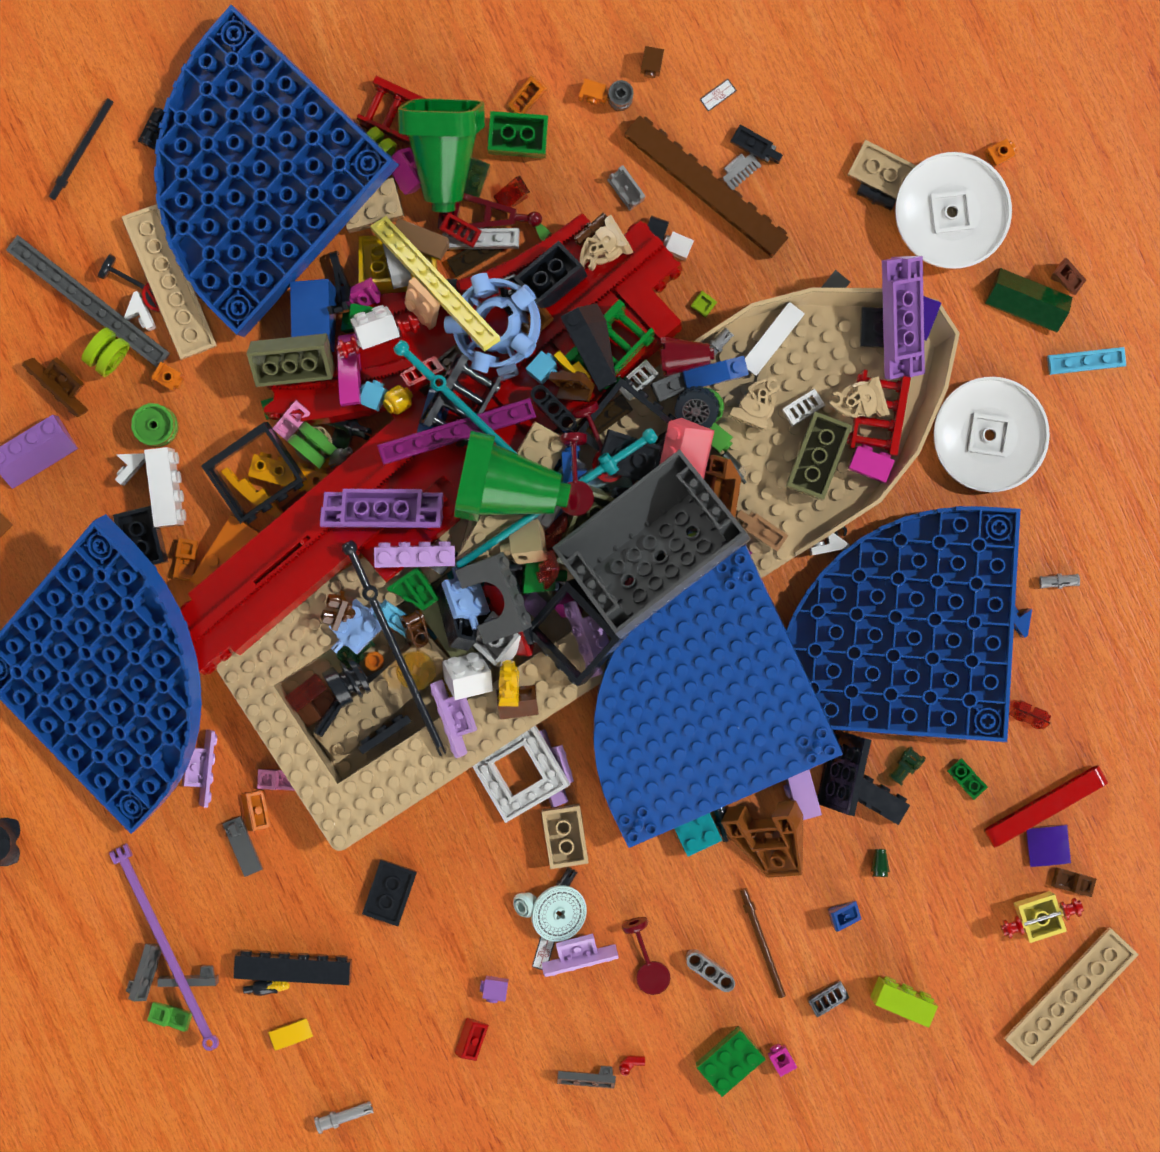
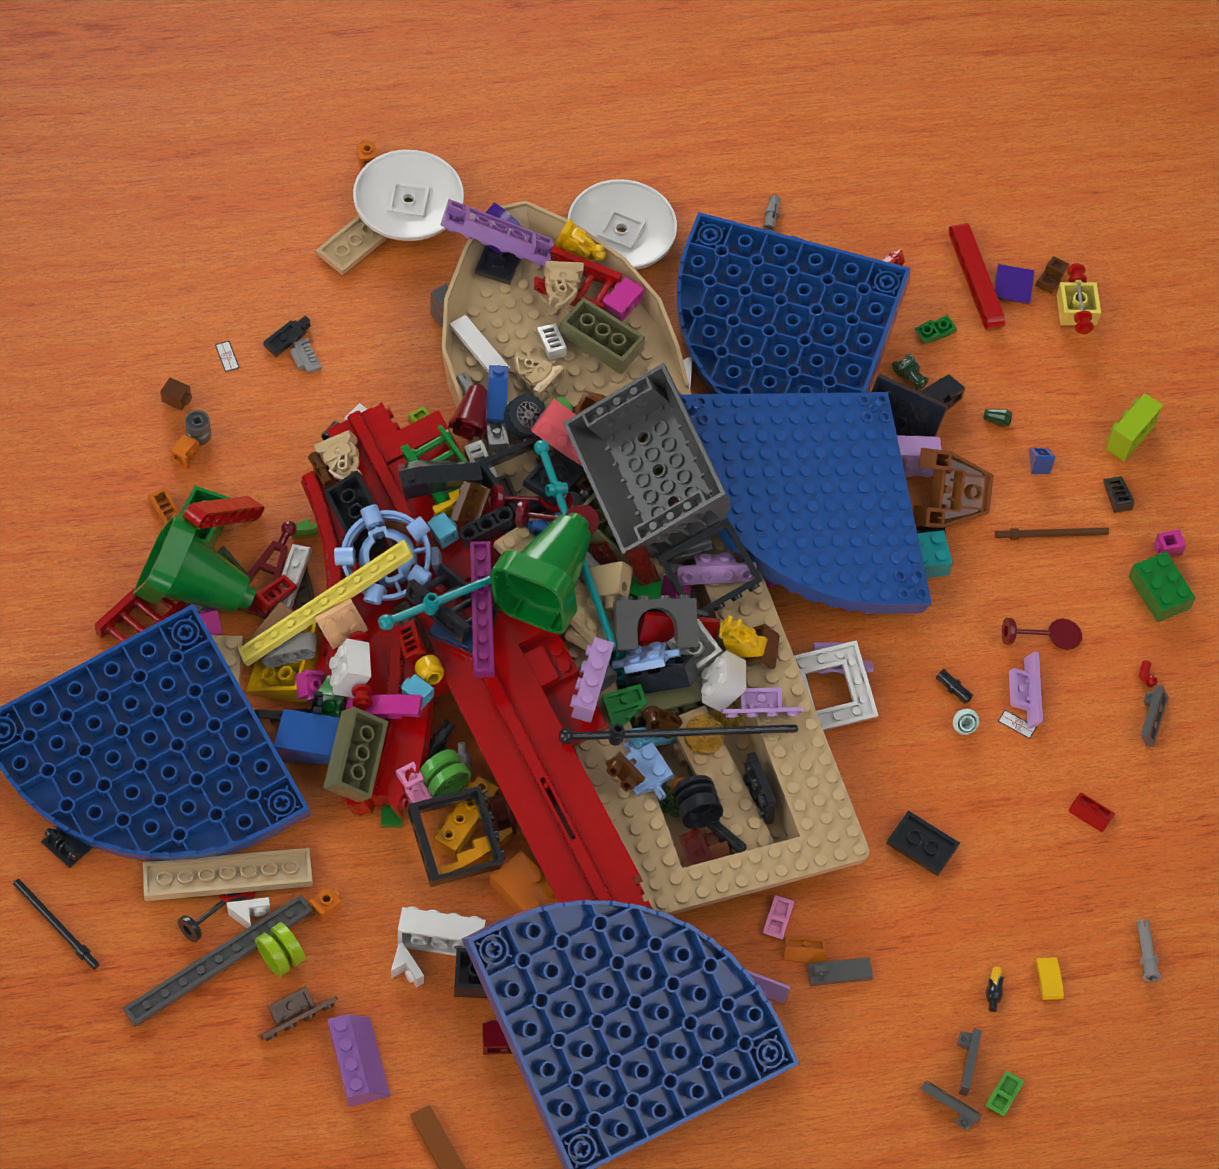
camera: 80 degrees left, 30 degrees down
(146, 432) = (372, 926): bright green wheel -> none
(164, 945) = (923, 1070): medium lavender hinge -> none
(293, 968) = (980, 956): black brick -> none
(382, 508) = (535, 696): medium lavender slope -> none
(494, 989) = (1045, 772): medium lavender brick -> none
(511, 153) = (223, 512): none -> red beam
(512, 193) = (255, 540): clear red slope -> none
(556, 927) = (981, 693): light aqua piece -> none
(565, 836) = (905, 666): tan brick -> none
(626, 188) = (287, 448): light grey hinge -> none
(706, 186) = (310, 384): reddish brown brick -> none
(714, 978) = (1072, 574): light grey beam -> none
(876, 196) = (371, 257): black pin -> none
(922, 401) = (579, 243): none -> yellow piece
(1029, 300) = (509, 169): dark green slope -> none
(1068, 276) = (495, 133): copper slope -> none
(1071, 996) = (1158, 303): tan plate -> none
(1086, 361) = (577, 144): medium azure tile -> none

